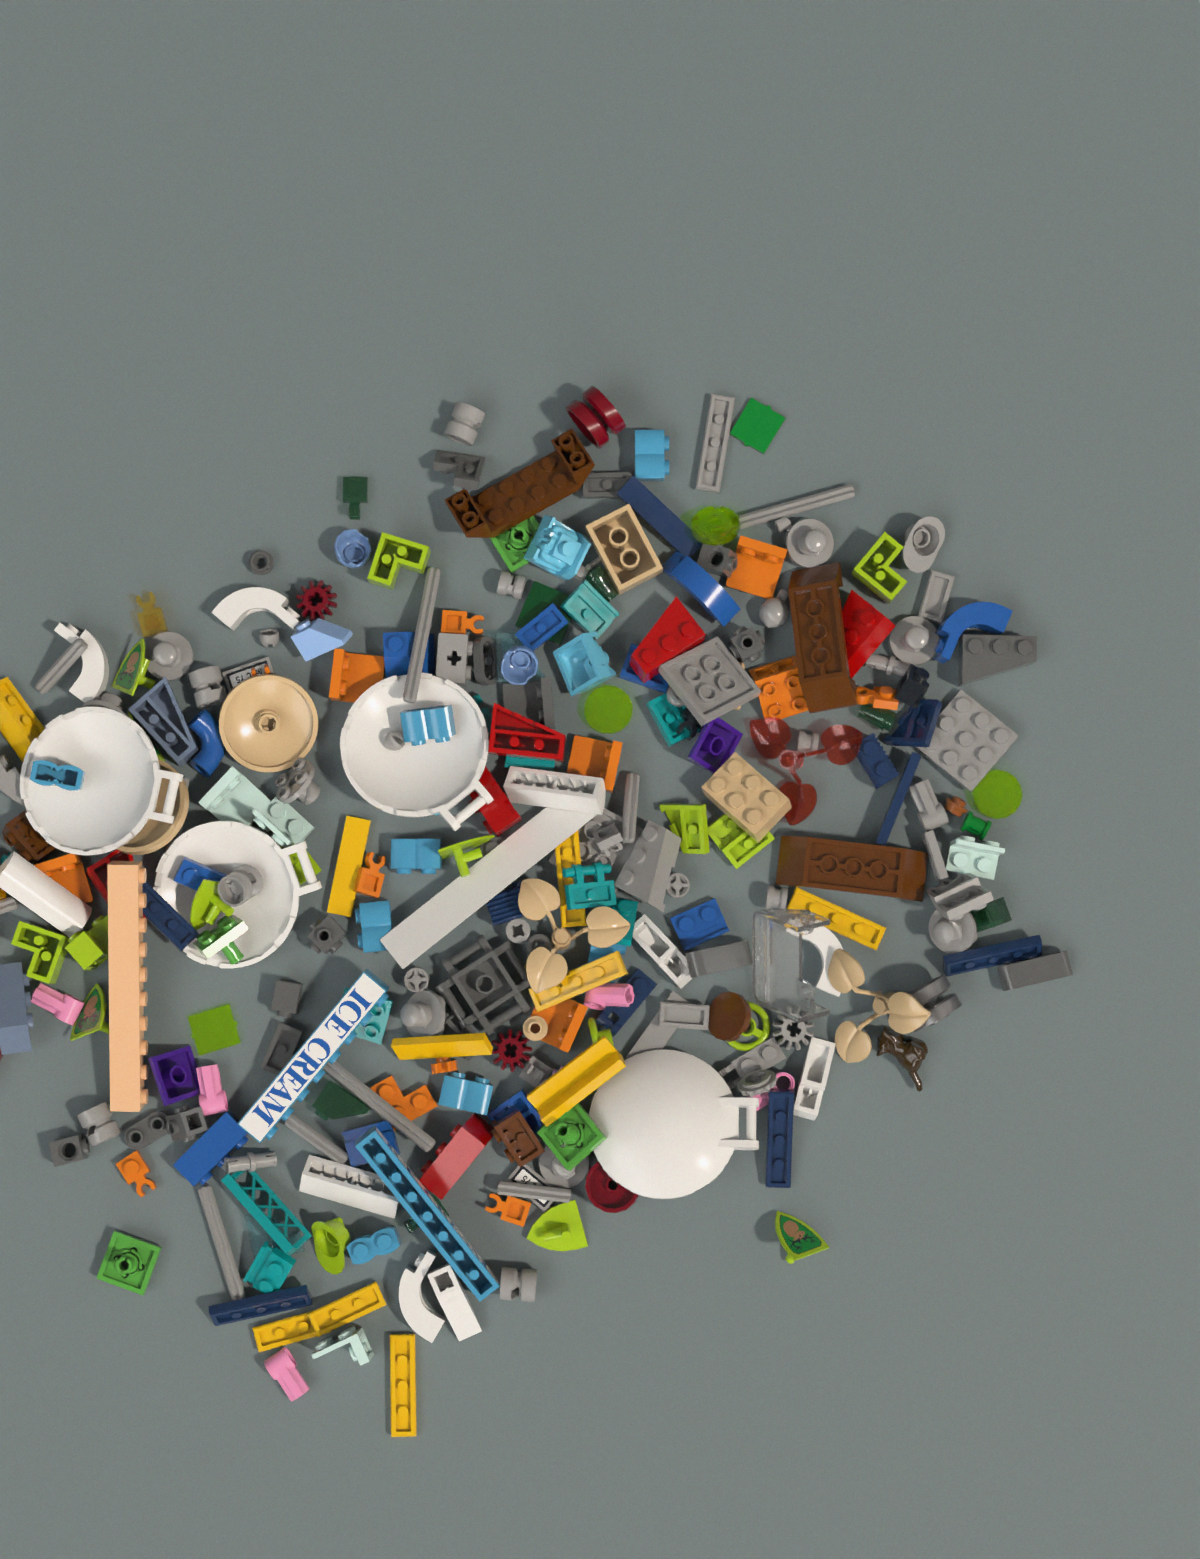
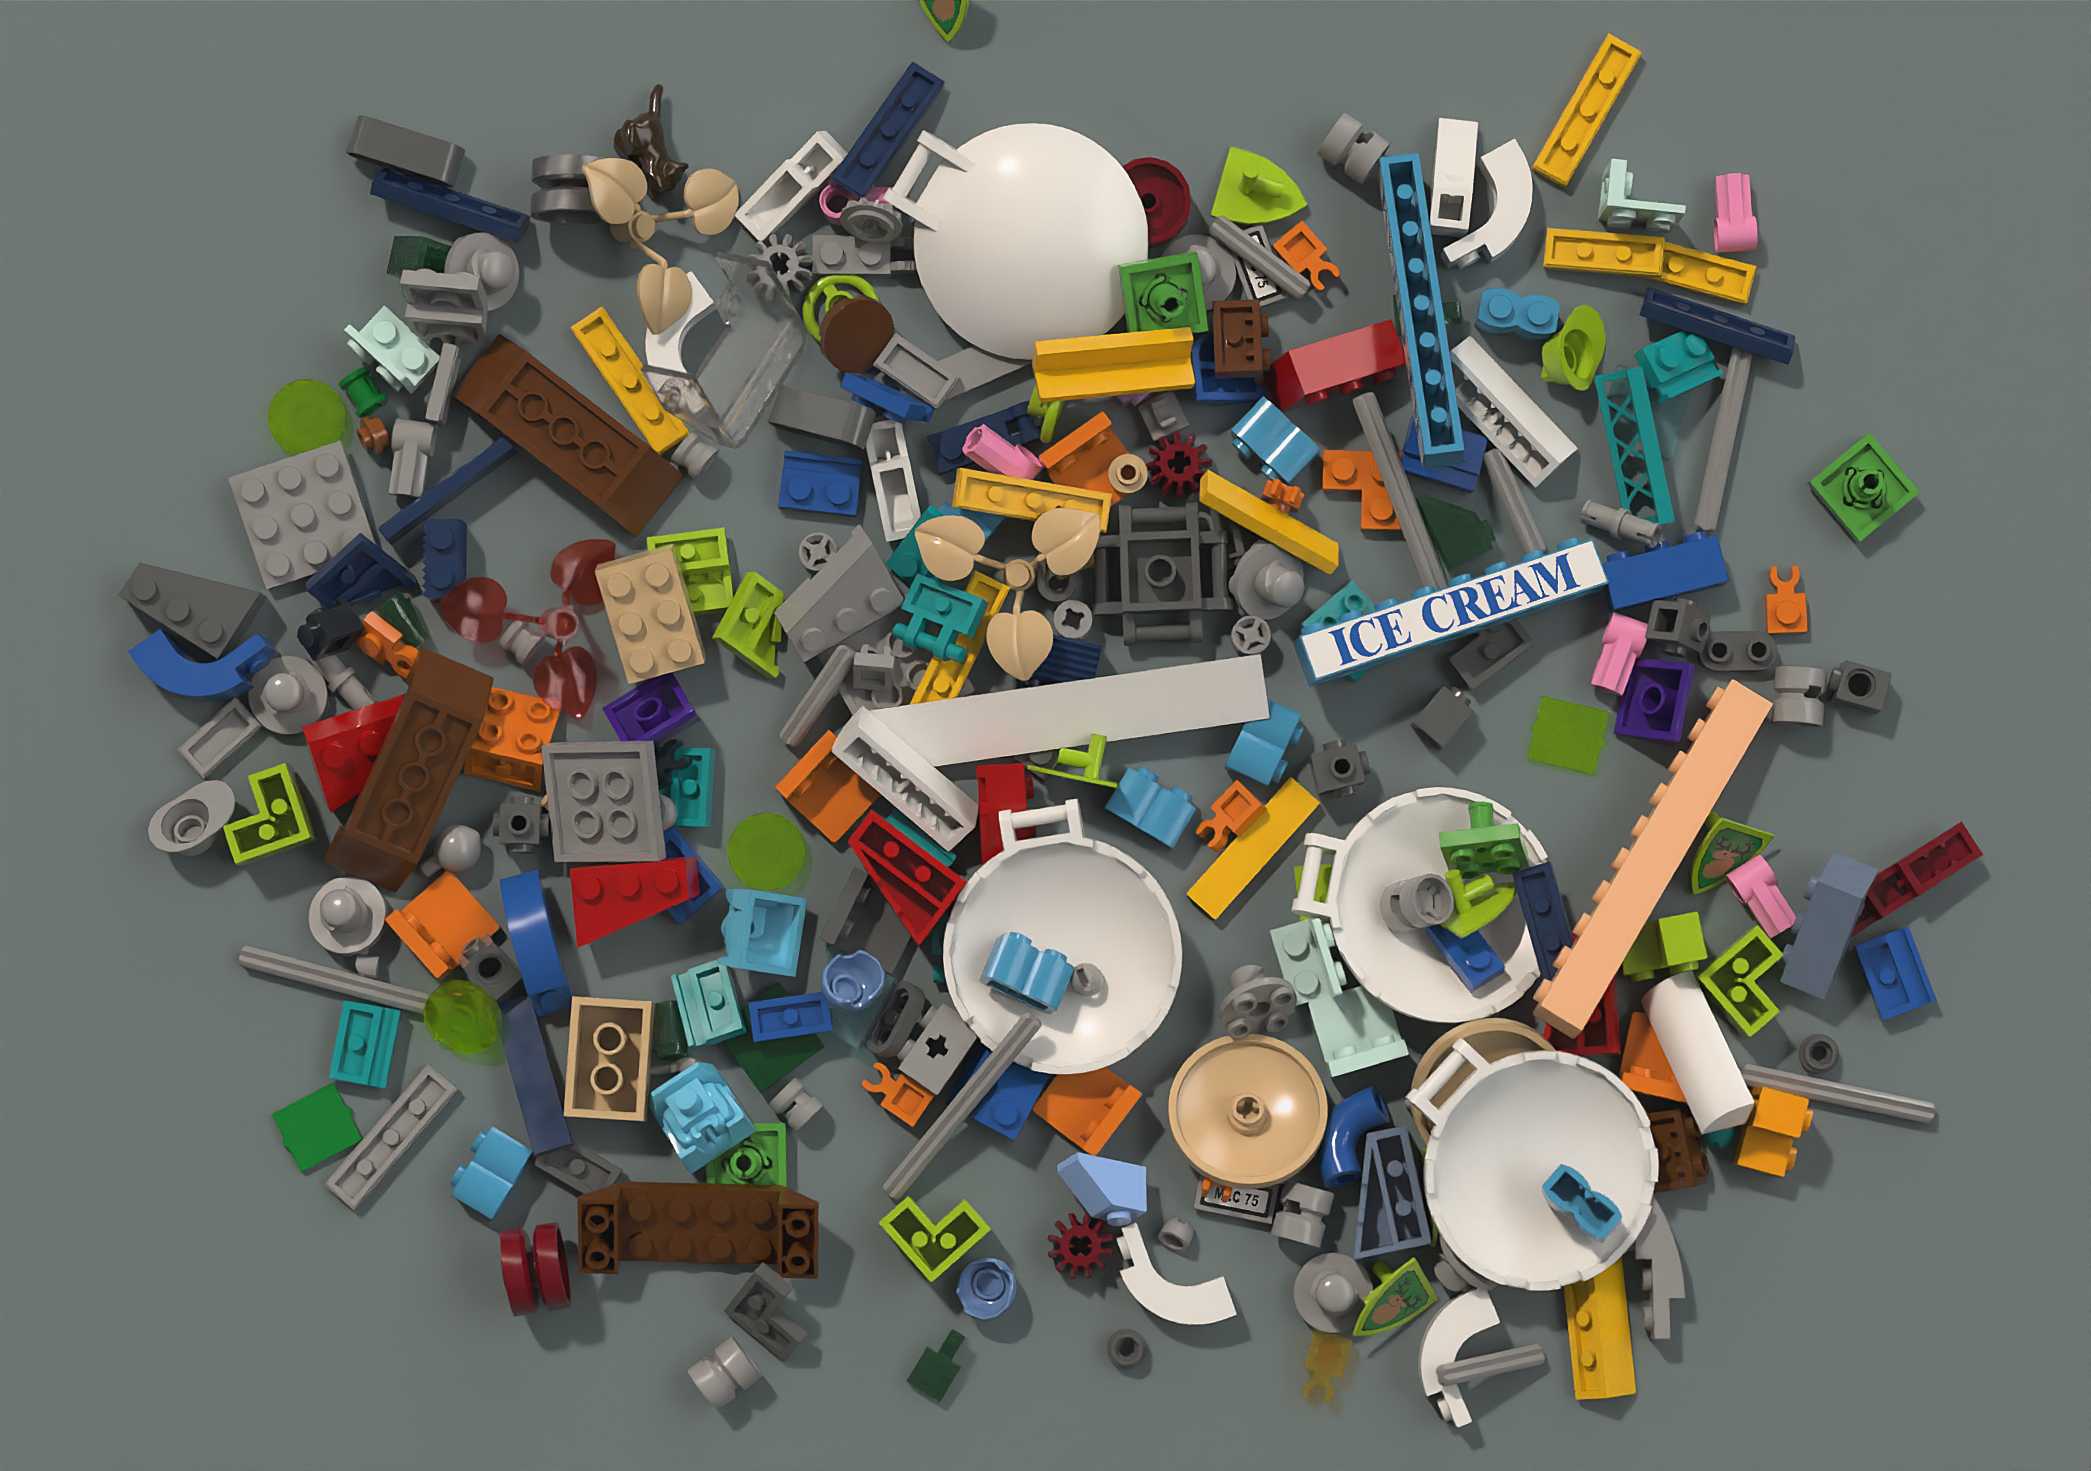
camera: 150 degrees left, 0 degrees up
(684, 990) = (896, 404): none -> blue plate
(758, 482) = (365, 1044): none -> teal plate

